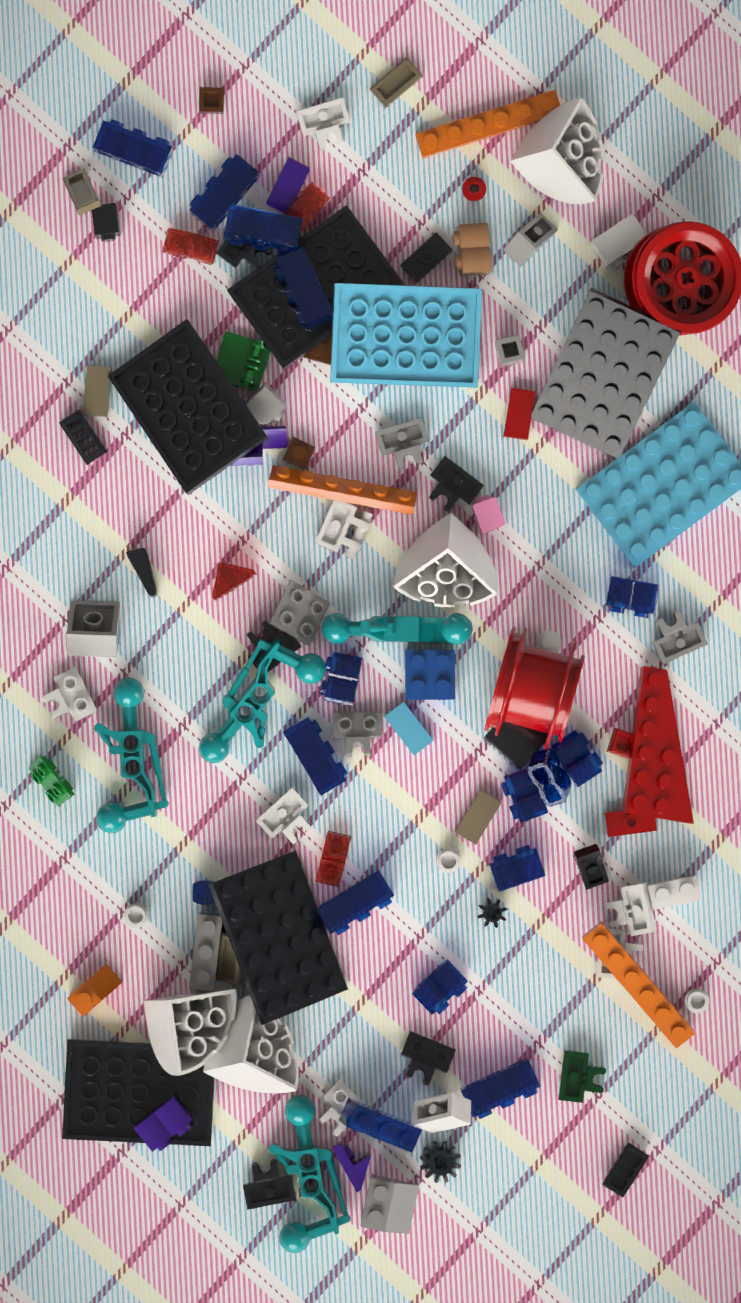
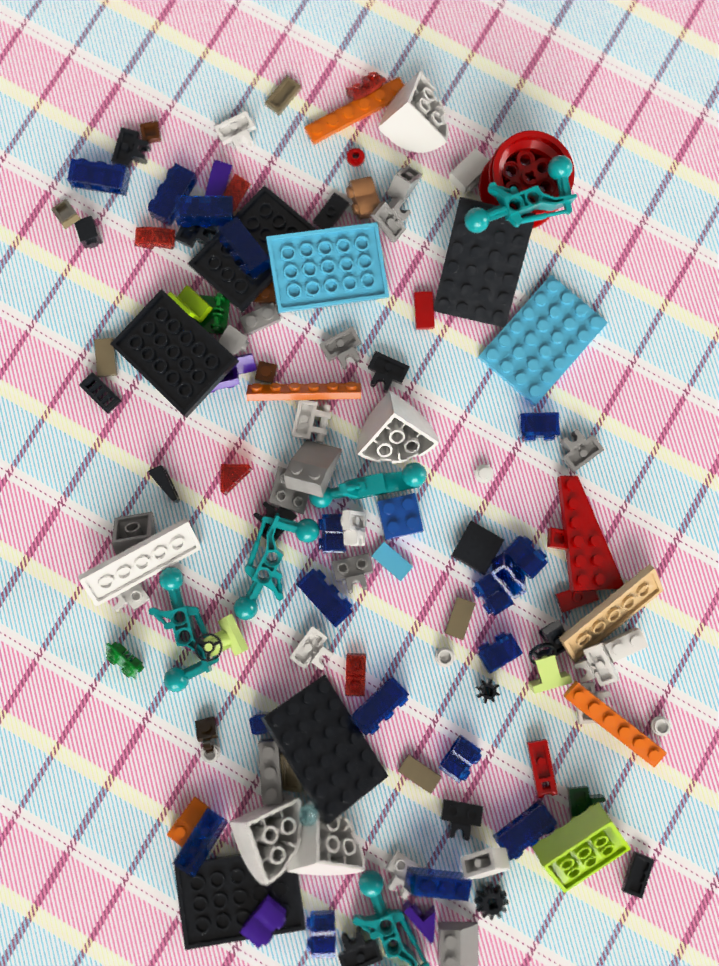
camera: 15 degrees left, 5 degrees down
(97, 664) = (139, 562): none -> white plate
(106, 1016) = (200, 842): none -> clear blue brick
(137, 888) = (206, 731): none -> dark brown plate
(179, 117) = (130, 148): none -> black plate
(186, 780) = (226, 638): none -> yellowish green piece
(222, 345) = (192, 303): none -> lime panel
(229, 1155) = (323, 935): none -> clear blue brick
(242, 1009) = (308, 815): none -> clear light blue tile
(305, 381) = (260, 319): none -> light grey plate
(333, 590) = (312, 468): none -> light grey slope
(370, 672) = (355, 529): none -> white plate
(386, 995) = (419, 773): none -> dark tan tile
(487, 514) = (417, 387): bright pink brick -> none
(501, 284) = (390, 218): none -> light grey plate
(509, 351) = (407, 264): light grey brick -> none
(513, 94) = (369, 84): none -> clear red slope
(534, 688) = (485, 508): red wheel -> none
(538, 1019) = (542, 768): none -> red plate
(562, 1121) = (580, 847): none -> lime slope
(570, 901) = (547, 669): none -> yellowish green piece
(668, 849) = (612, 612): none -> tan plate
(720, 283) = (558, 169): none -> teal piece

